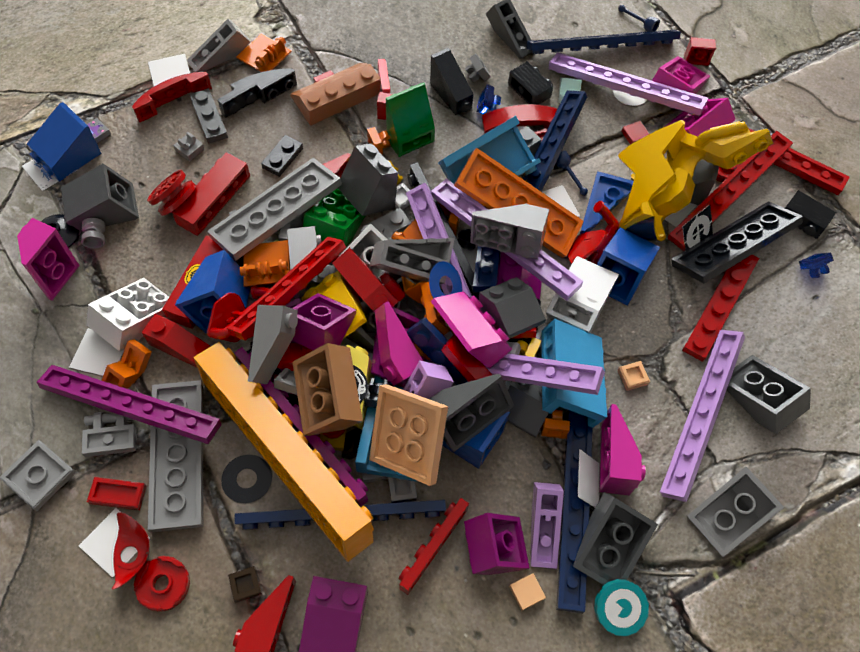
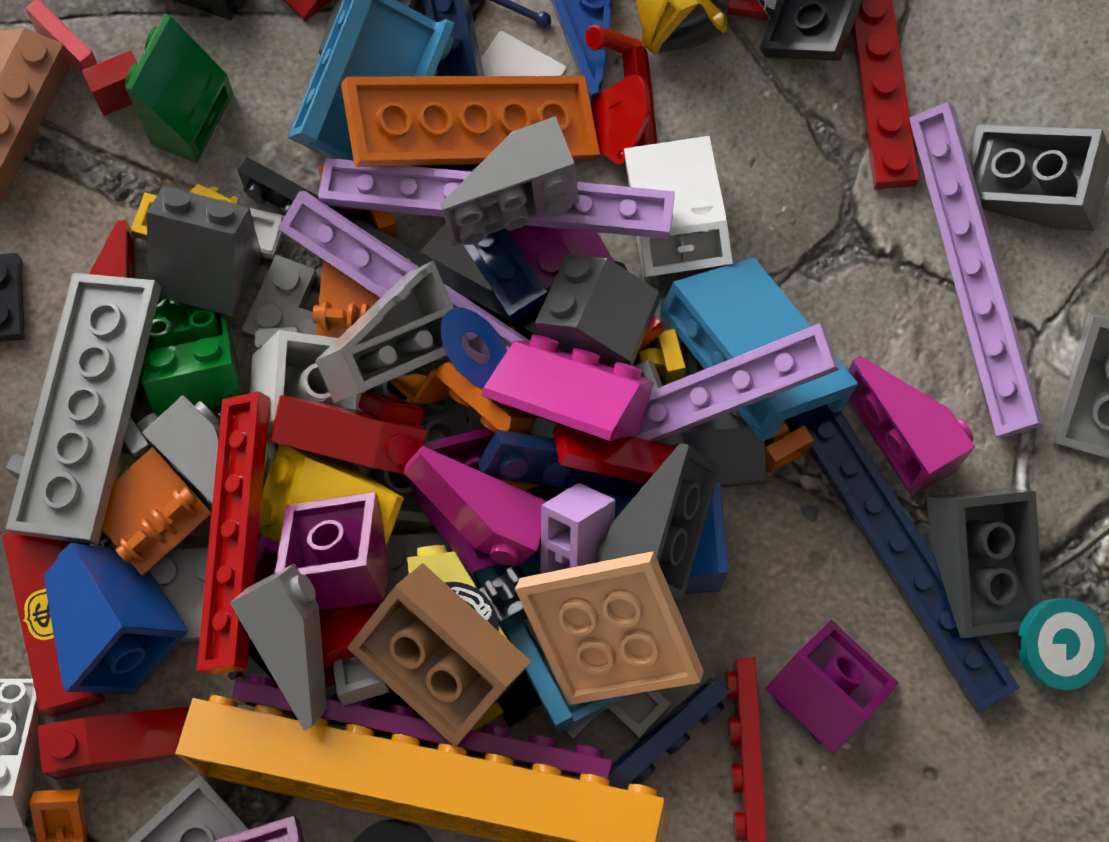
camera: 35 degrees left, 10 degrees up
(226, 311) = (171, 638): red piece -> none
(378, 140) = (143, 162): orange tile -> none
(464, 239) = (425, 225): black plate -> none
(527, 592) = (921, 719): light nougat tile -> none
(546, 524) = (877, 601): lavender slope -> none
(588, 479) = (891, 493): white sticker -> none
(631, 259) = (701, 95): blue slope -> none
(633, 375) = (835, 281): light nougat tile -> none

